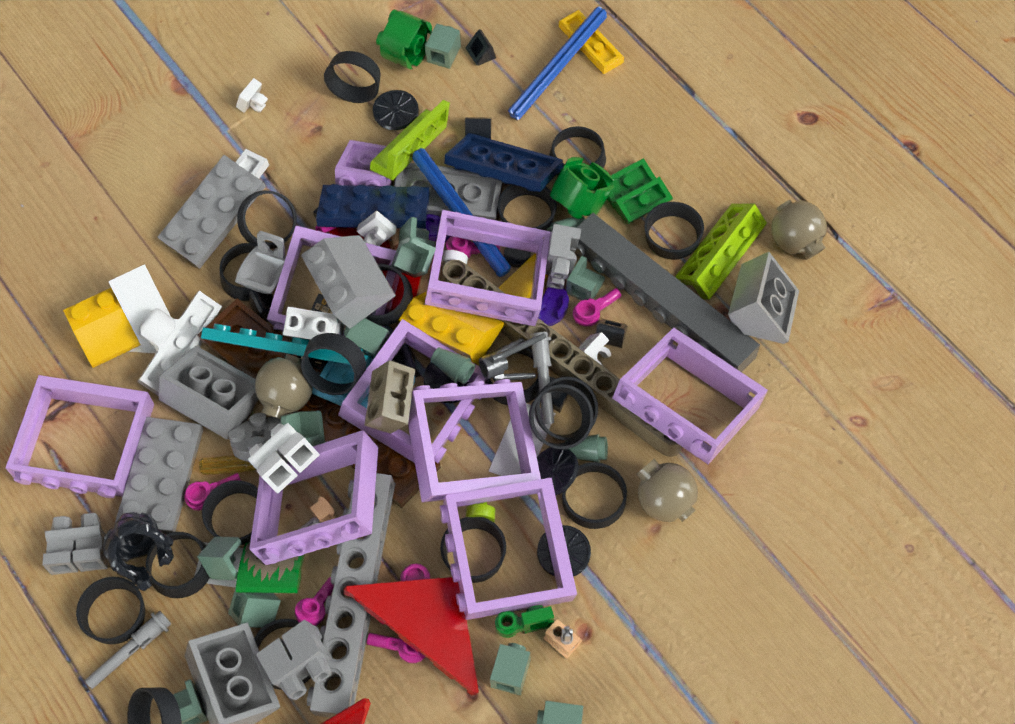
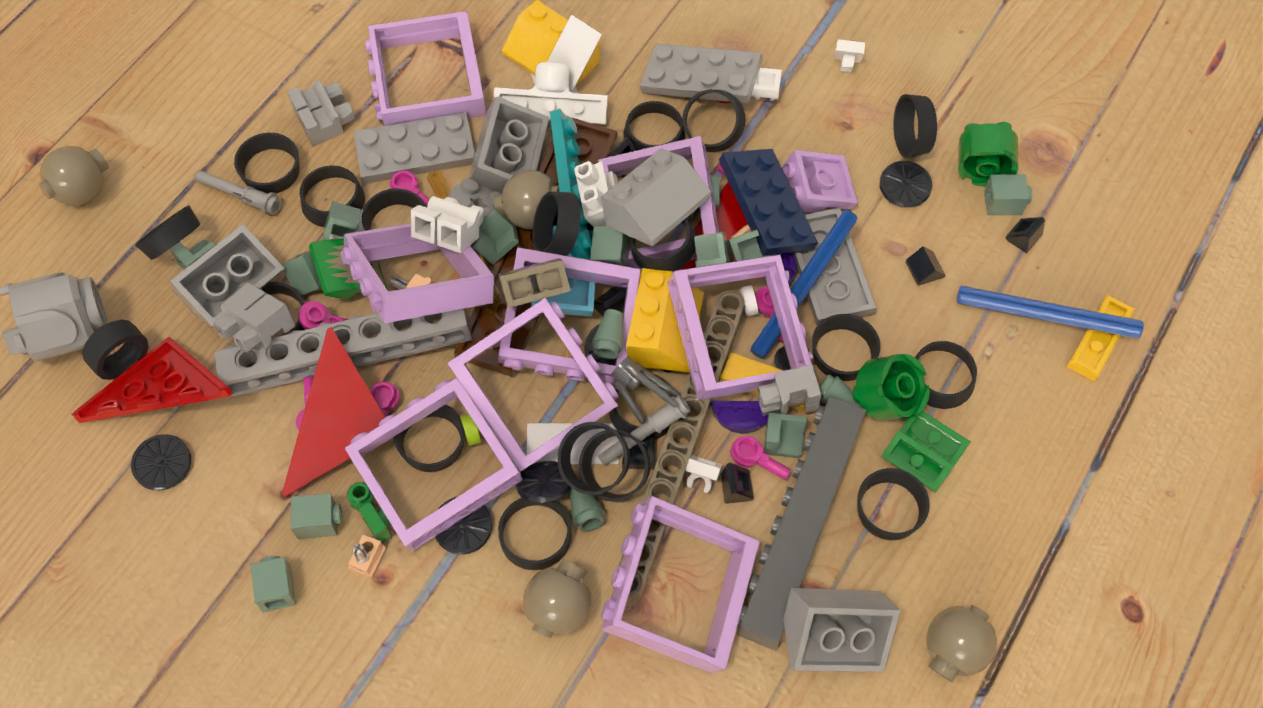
camera: 65 degrees right, 0 degrees up
(133, 539) = (334, 143): black hair -> none
(263, 266) = (649, 130): light grey piece -> none
(376, 229) = (736, 211): white tile -> none
(416, 135) = (868, 207): lime fence -> none
(503, 162) = (885, 301): dark blue plate -> none
(724, 250) = (893, 568): lime fence -> none

